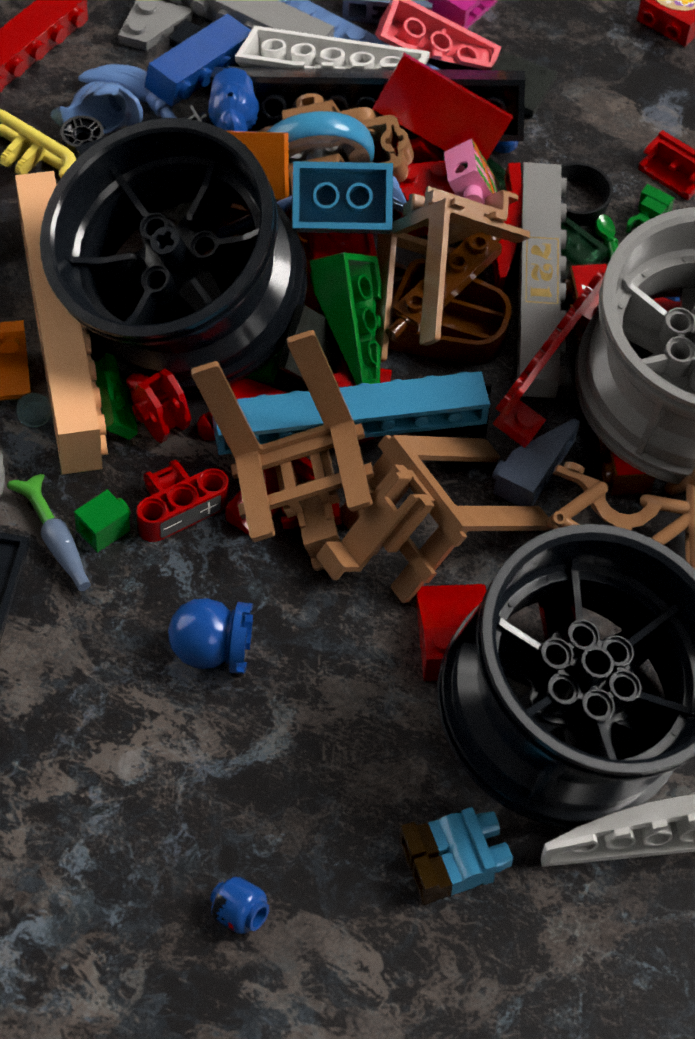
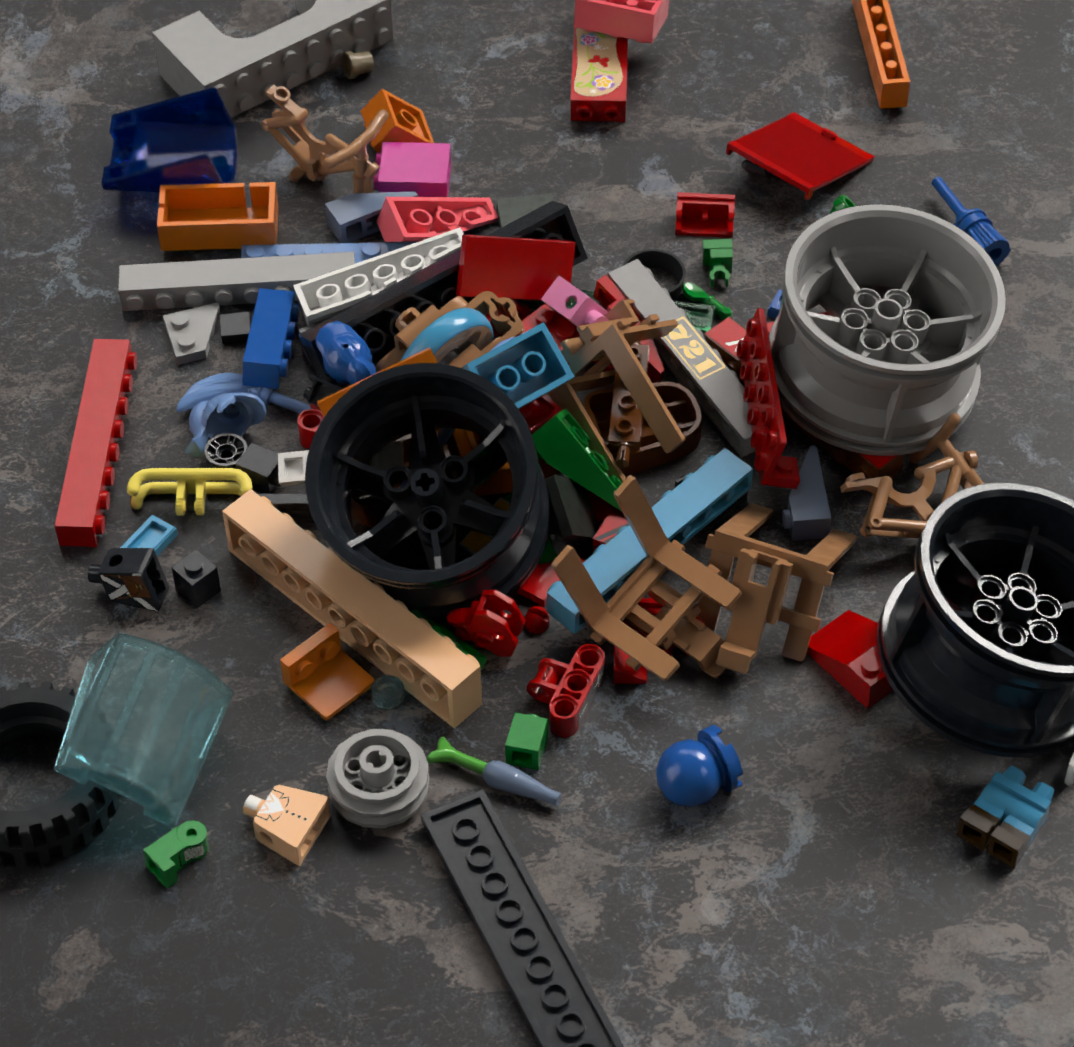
camera: 30 degrees left, 5 degrees down
(239, 905) = (894, 954): blue head -> none

